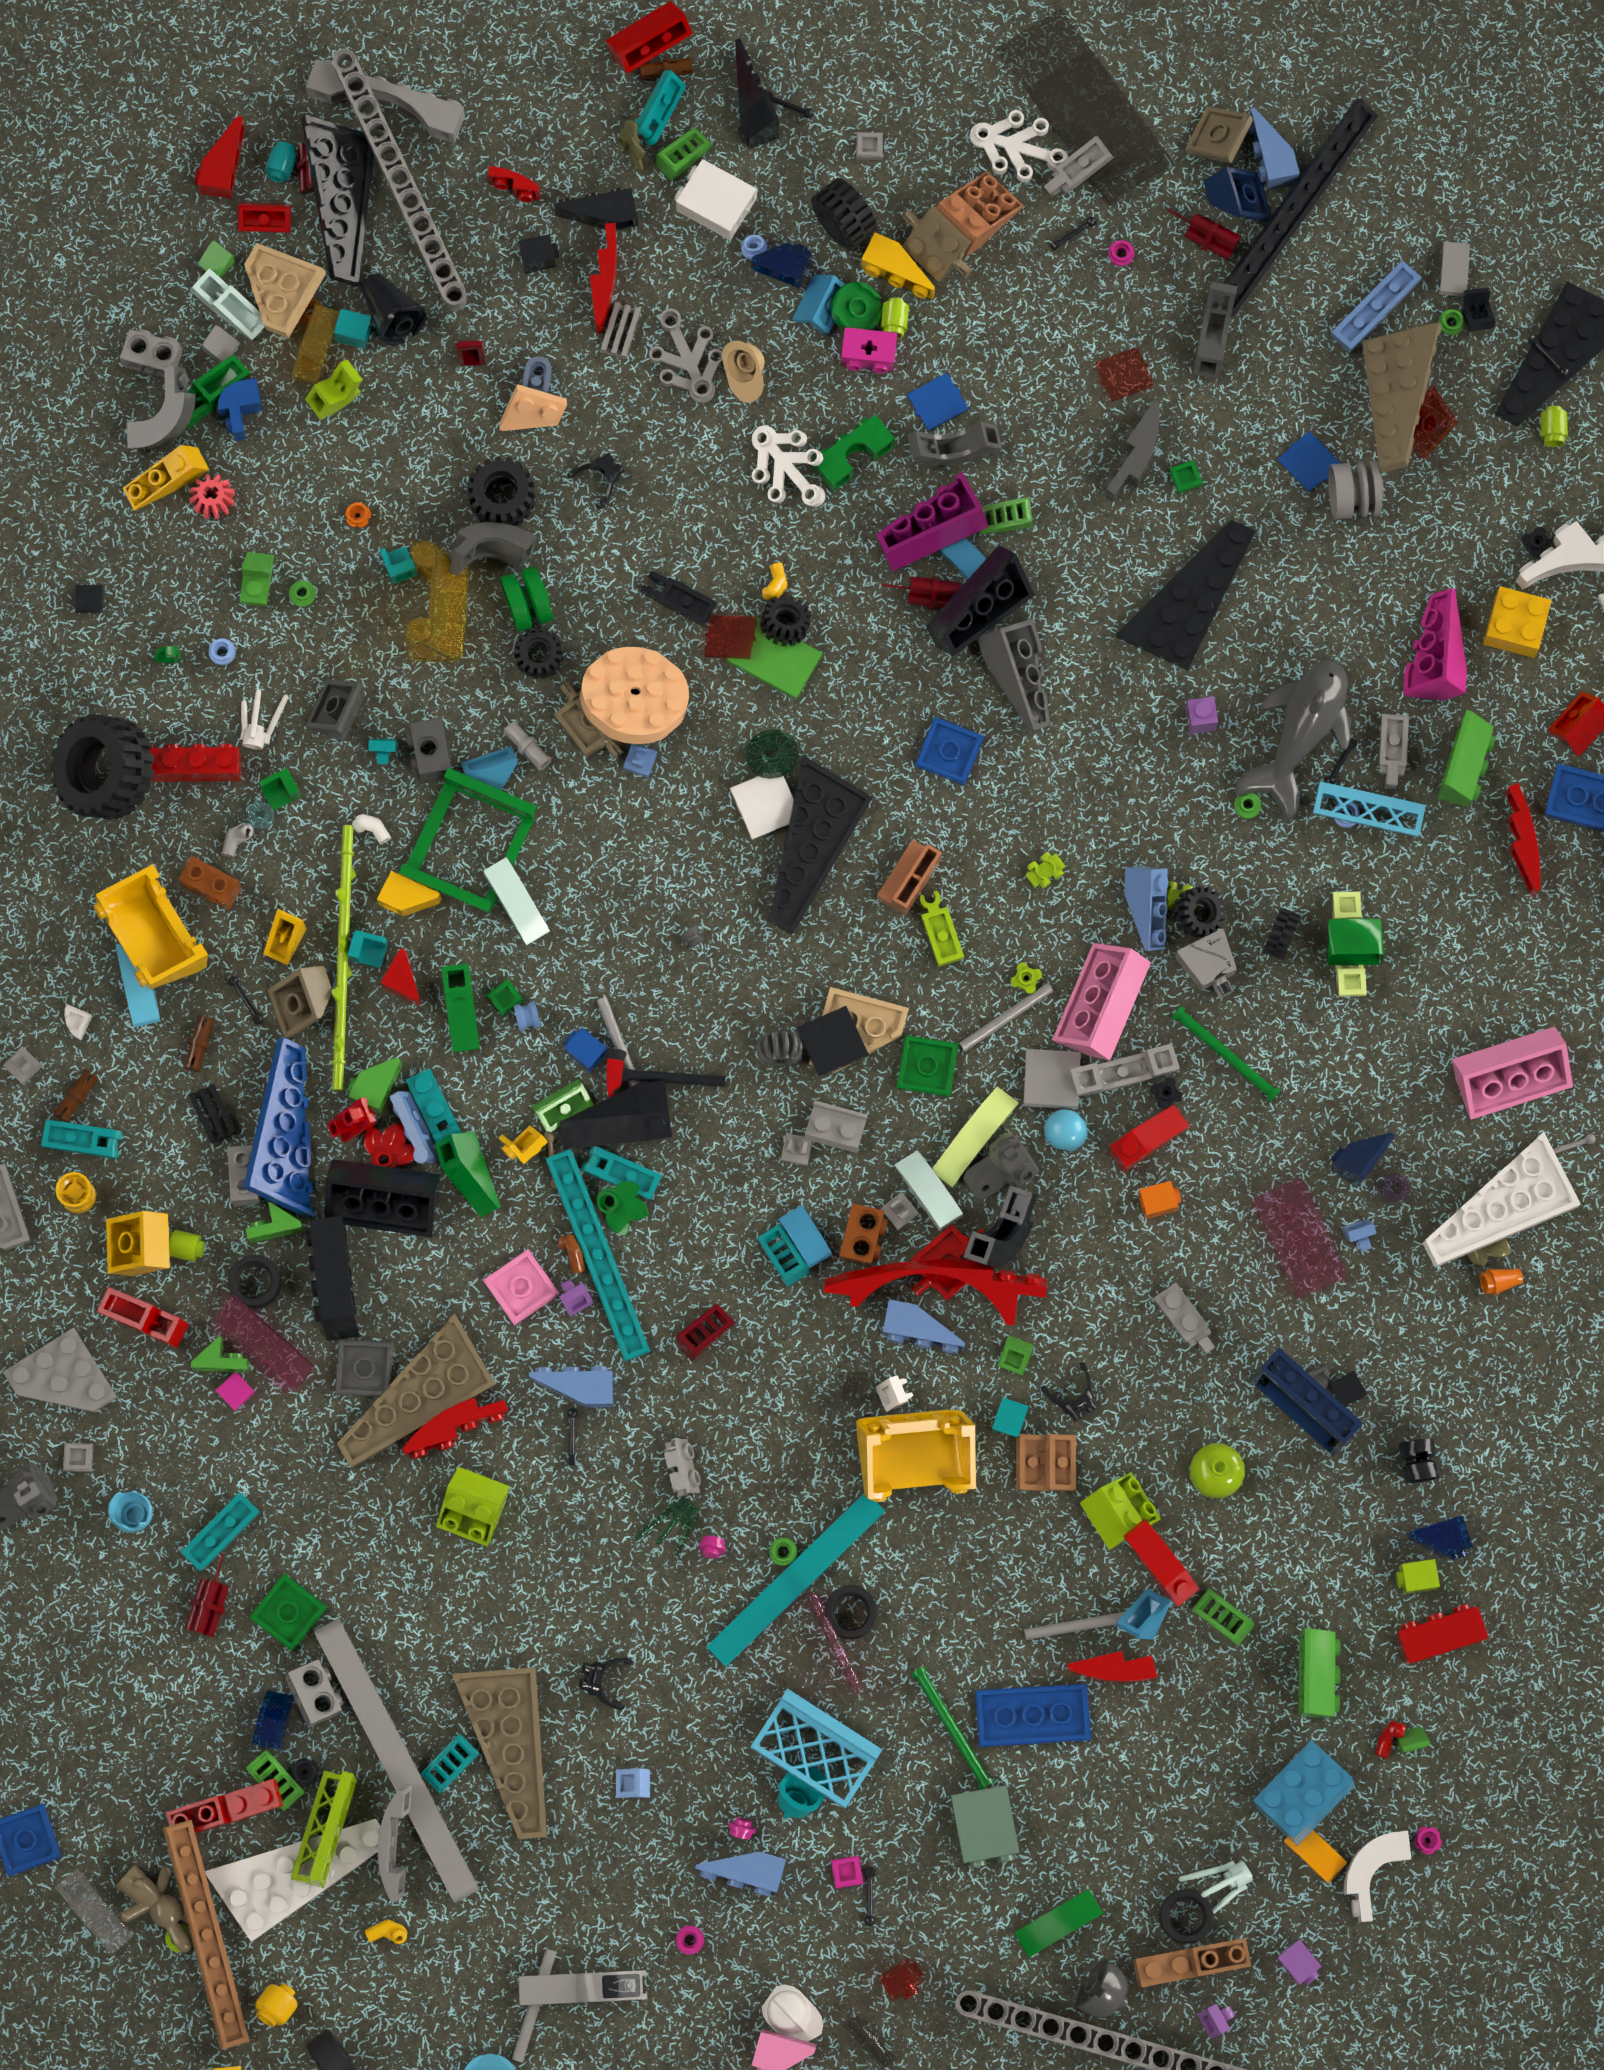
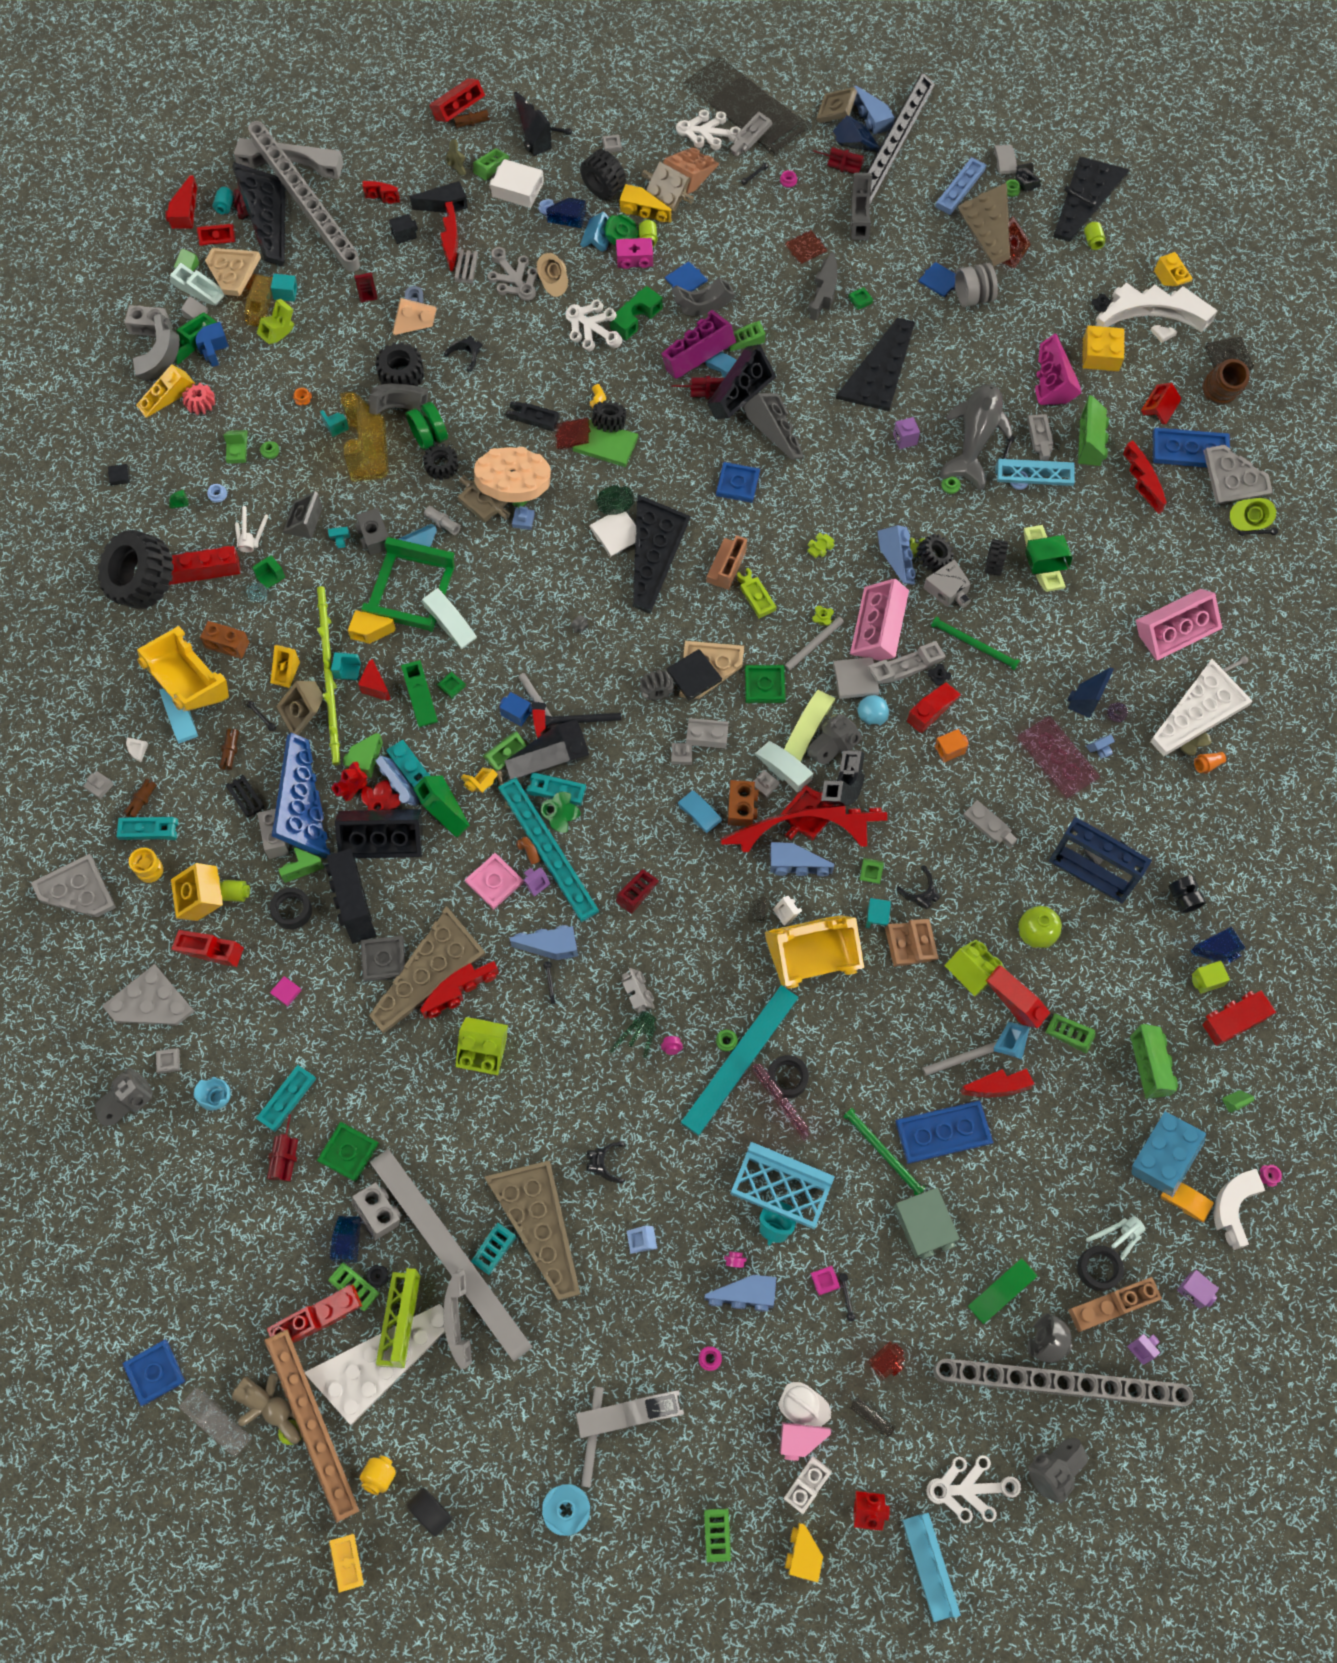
camera: 10 degrees left, 10 degrees down
(212, 1360) = (265, 970): bright green slope -> none
(235, 837) = (240, 609): light grey arm -> none
(259, 1339) = (300, 949): clear pink windscreen -> none
(373, 824) = (332, 585): white arm -> none
(387, 1929) = (463, 1394): yellow arm -> none
(392, 310) = (310, 272): black cone -> none
(527, 1016) = (469, 693): medium blue wheel -> none
(659, 107) = (471, 137): teal plate -> none
(794, 1274) = (695, 836): teal slope -> none
(1386, 1738) = (1217, 1102): red arm -> none

